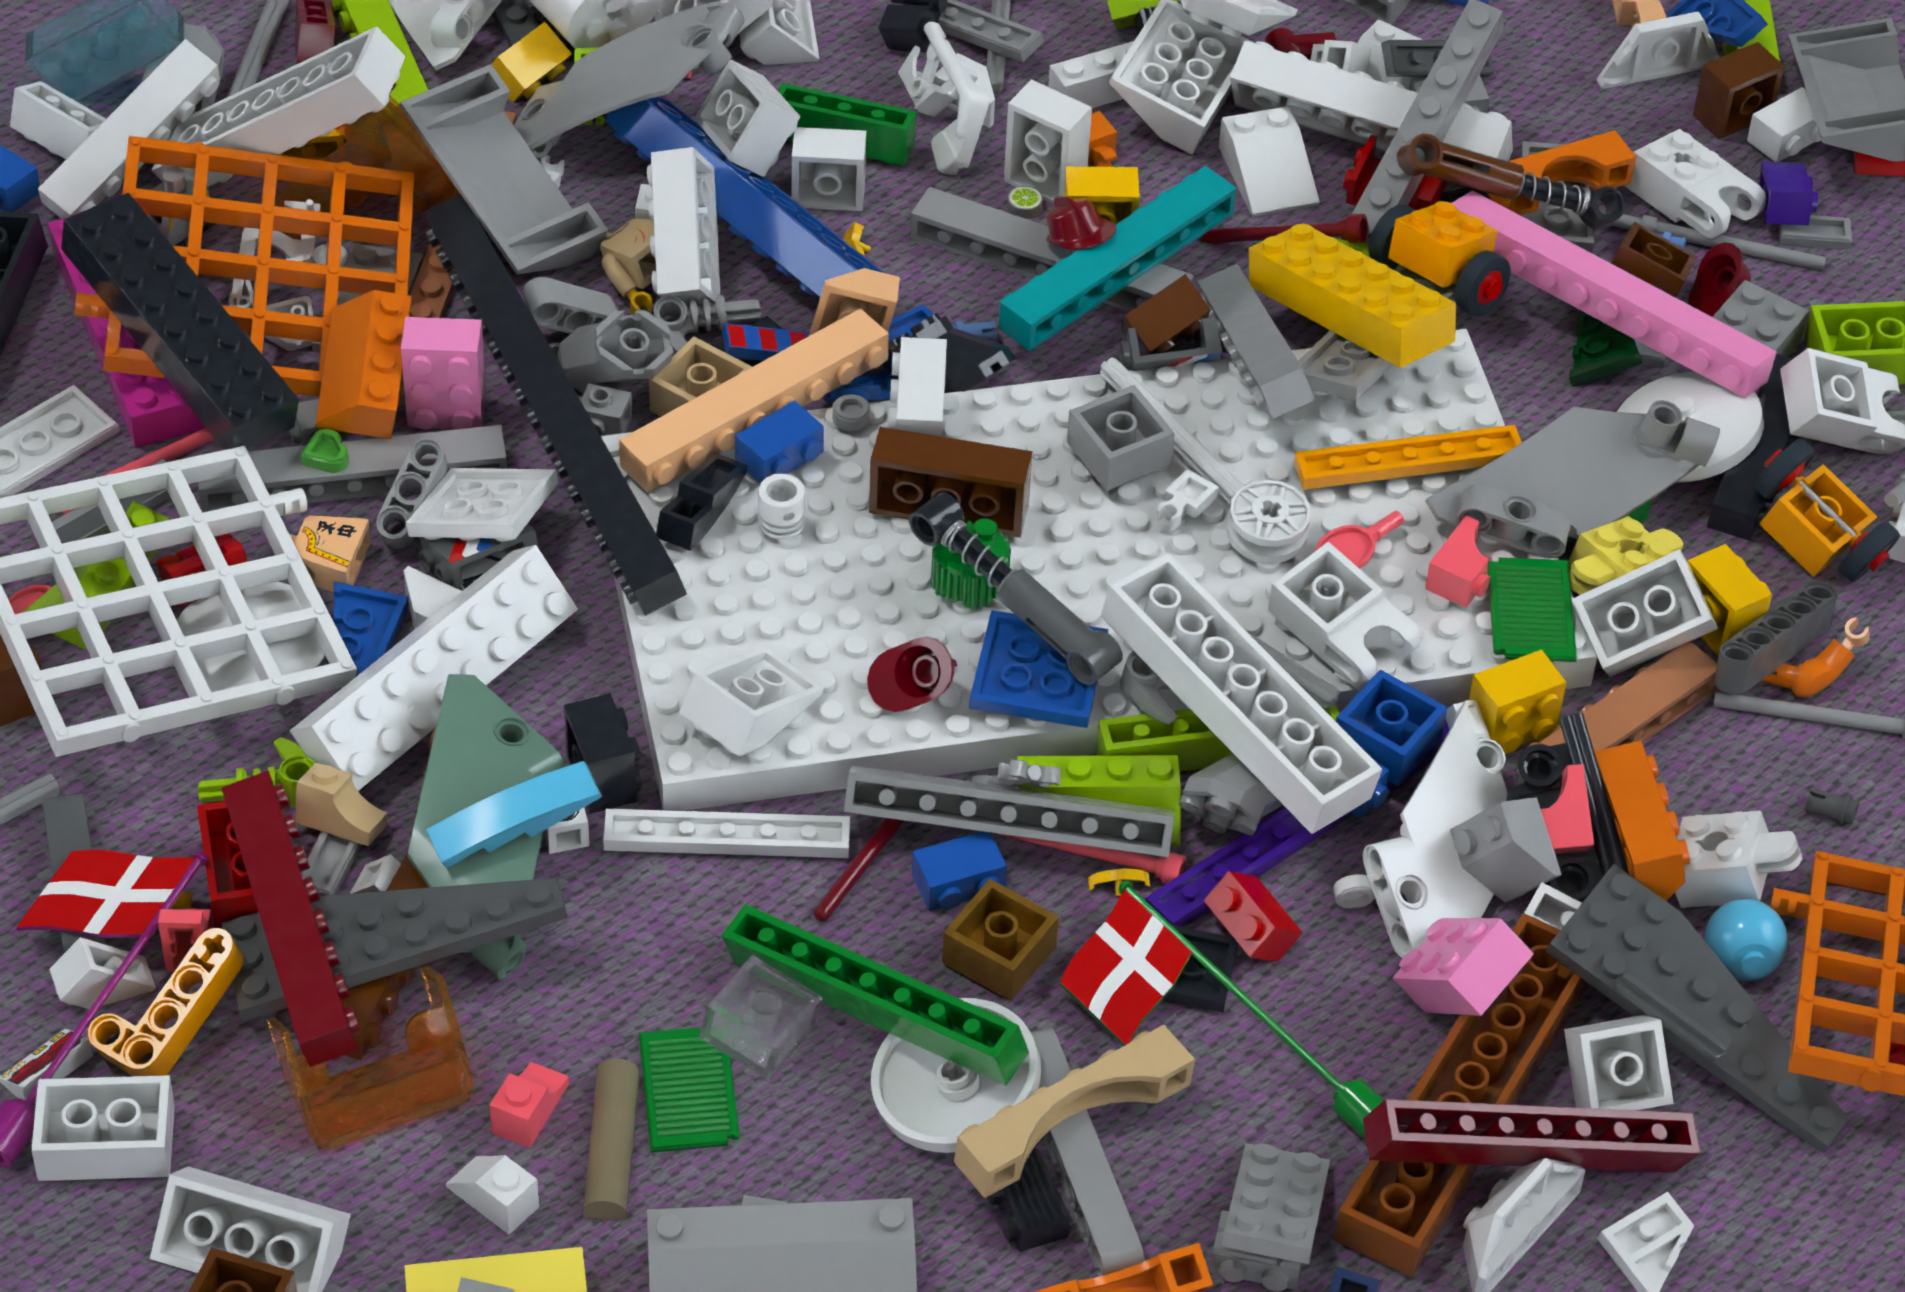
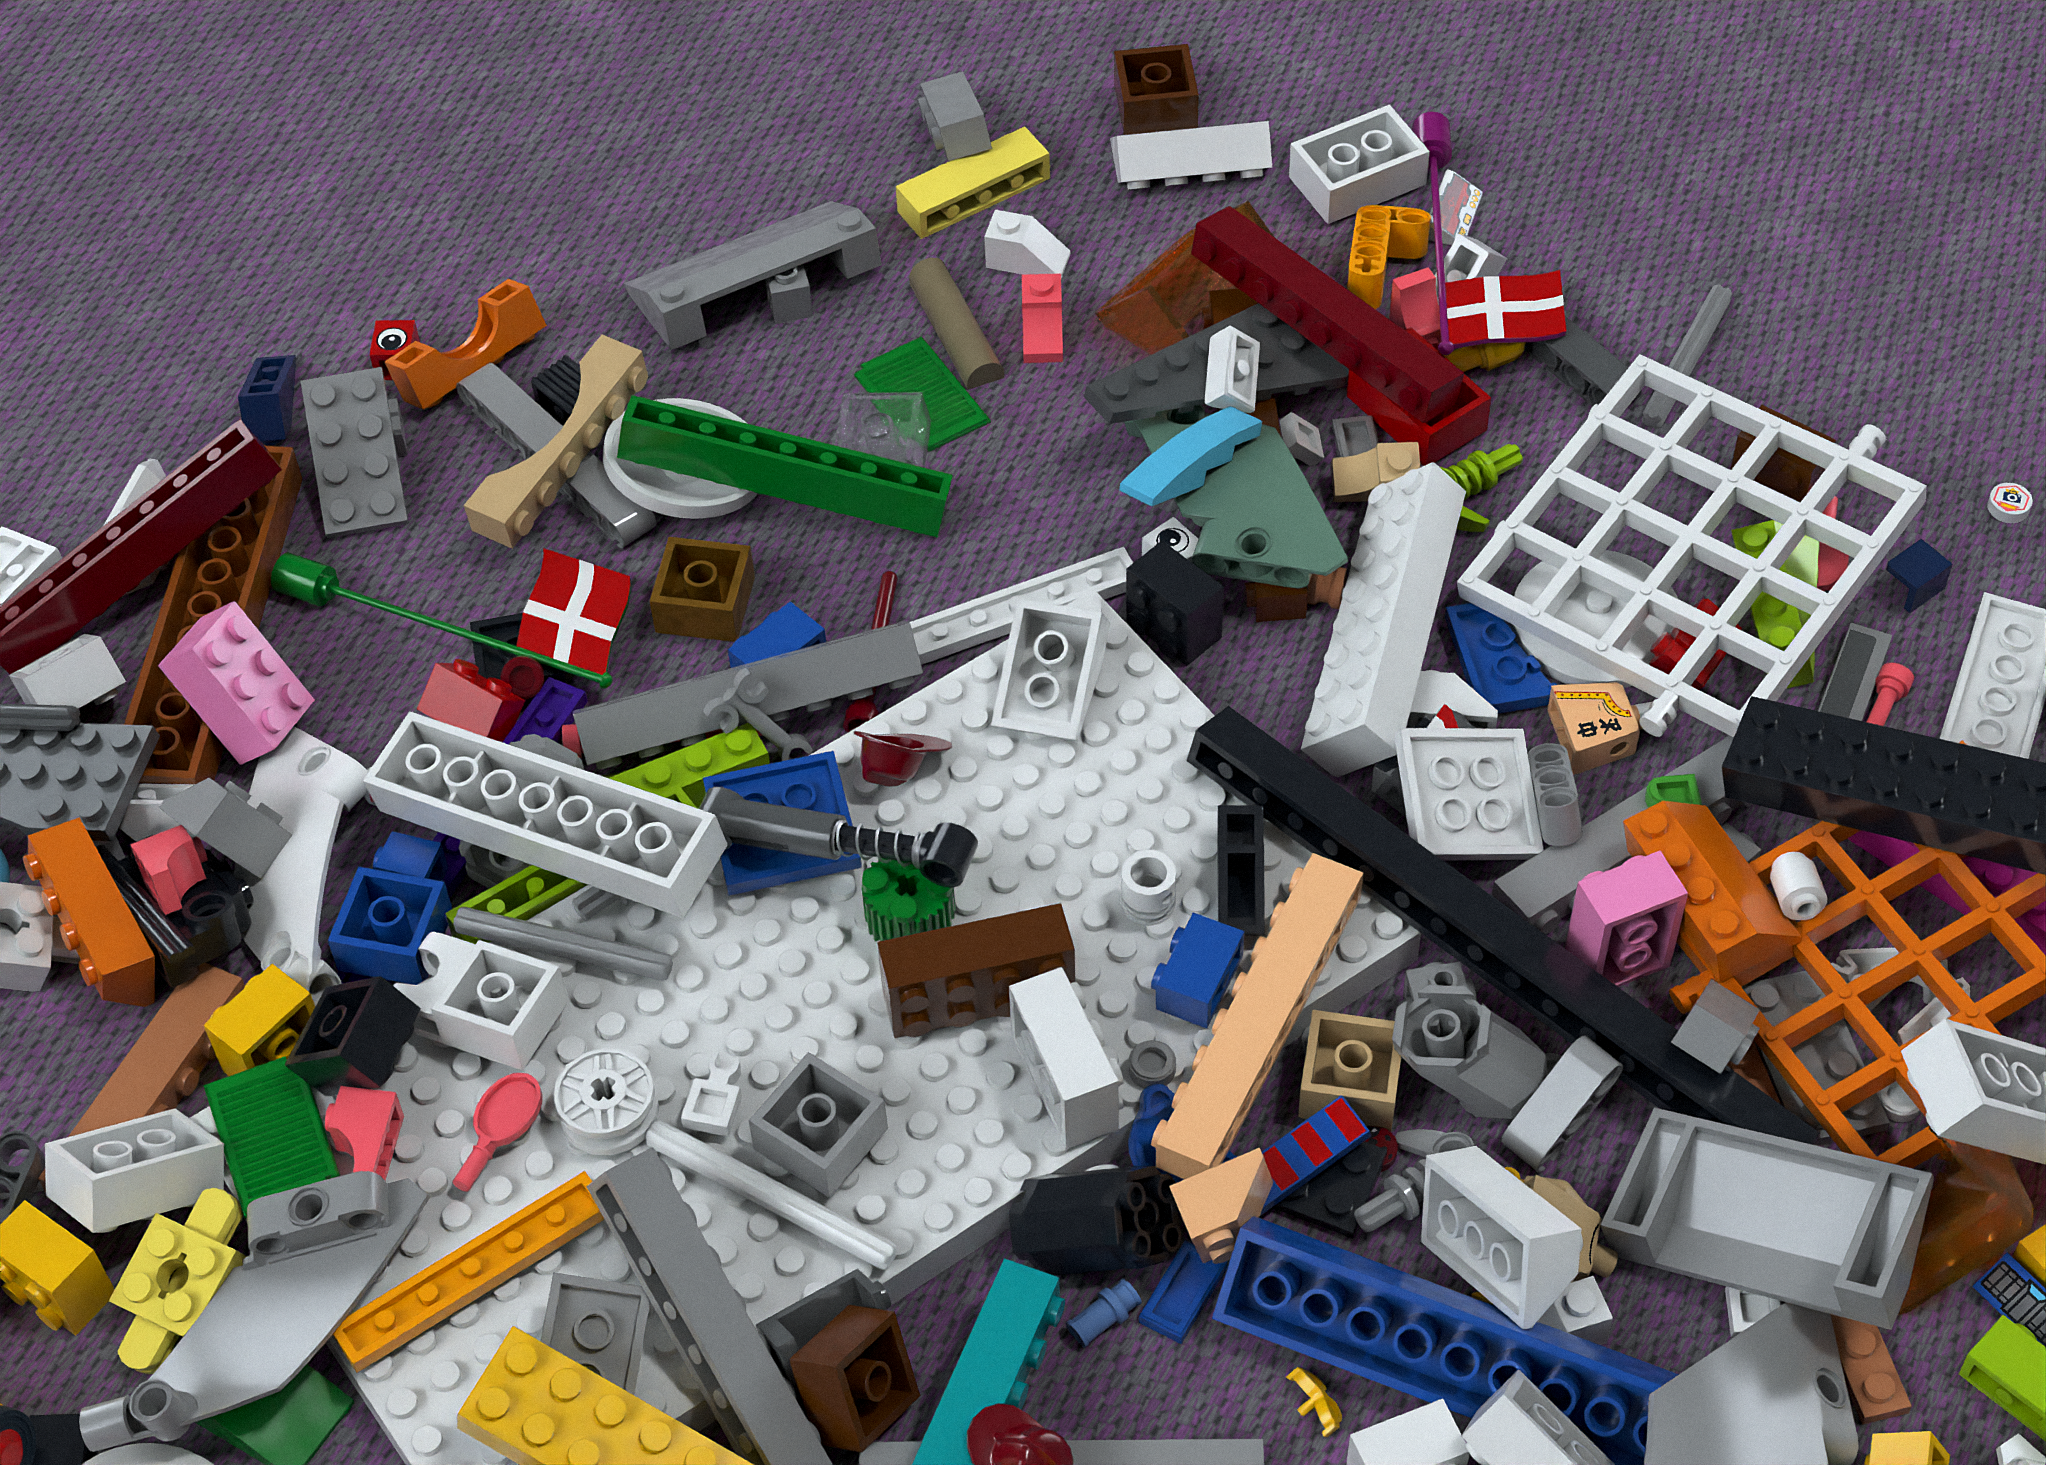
camera: 160 degrees right, 5 degrees up
(309, 327) = (1797, 886): none -> white brick
(417, 890) = (1232, 370): none -> white slope
(443, 275) = (1718, 1027): none -> light grey brick
(1197, 922) = (524, 676): none -> dark red tile
(1451, 606) = (353, 1036): none -> black brick

